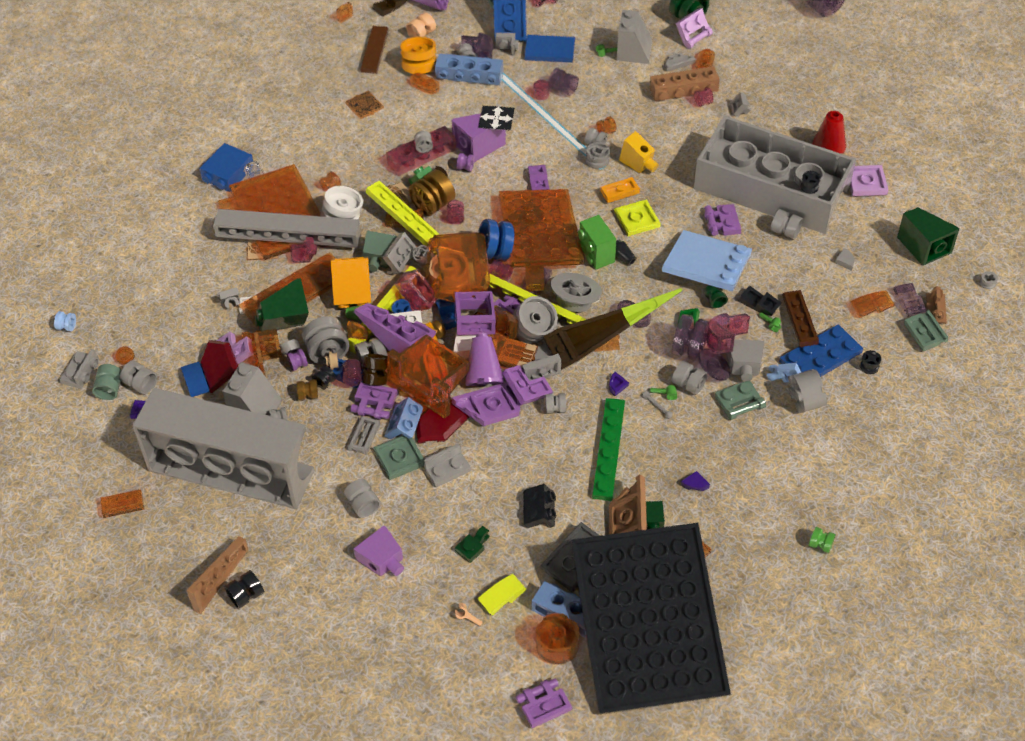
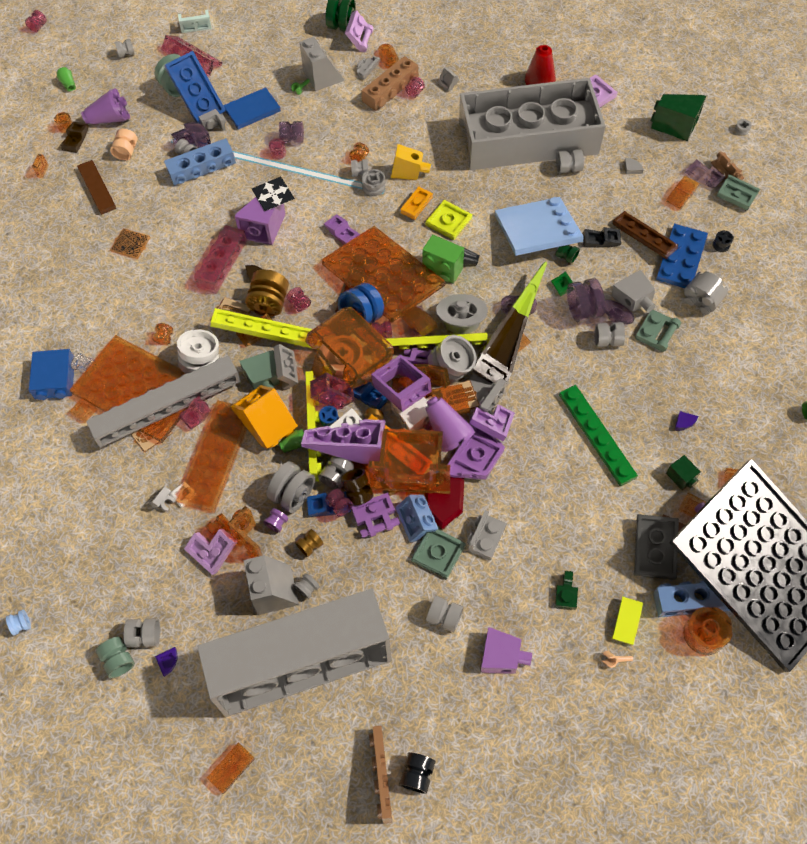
camera: 35 degrees left, 10 degrees up
(79, 369) = (72, 661): light grey bracket -> none
(124, 355) = (107, 618): clear orange plate -> none
(195, 379) = (196, 599): blue slope -> none
(218, 364) = (208, 571): dark red tile -> none
(283, 308) = (229, 479): dark green slope -> none
(289, 346) = (263, 513): light grey beam -> none
(324, 377) = (314, 521): black wheel -> none
(331, 360) = (312, 502): tan plate -> none
(356, 330) = (314, 461): clear orange tile -> none
(358, 448) = (396, 568): light grey tile -> none
(418, 55) = (146, 171): light orange wheel -> none
(419, 173) = (241, 282): green plate -> none
(420, 253) = (304, 358): light grey wheel -> none
(423, 141) = (222, 249): light grey wheel -> none
(424, 83) = (169, 195): clear orange plate -> none
(465, 162) = (268, 248): medium lavender wheel -> none
(539, 506) = (589, 522): black bracket -> none
(546, 707) = (746, 696): medium lavender plate -> none
(560, 403) = (526, 421): light grey wheel -> none
(617, 384) = (555, 373): dark purple tile -> none
(629, 509) = (670, 484): medium nougat wing -> none
(668, 414) = (585, 370): light grey hinge -> none
(670, 391) = (603, 355): bright green hand -> none
(723, 331) = (613, 286): clear pink arch -> none
(727, 217) = (519, 181): medium lavender plate -> none
(774, 323) = (629, 250): bright green hand -> none
(782, 371) = (674, 287): light blue plate -> none
(810, 182) = (577, 115): black wheel -> none

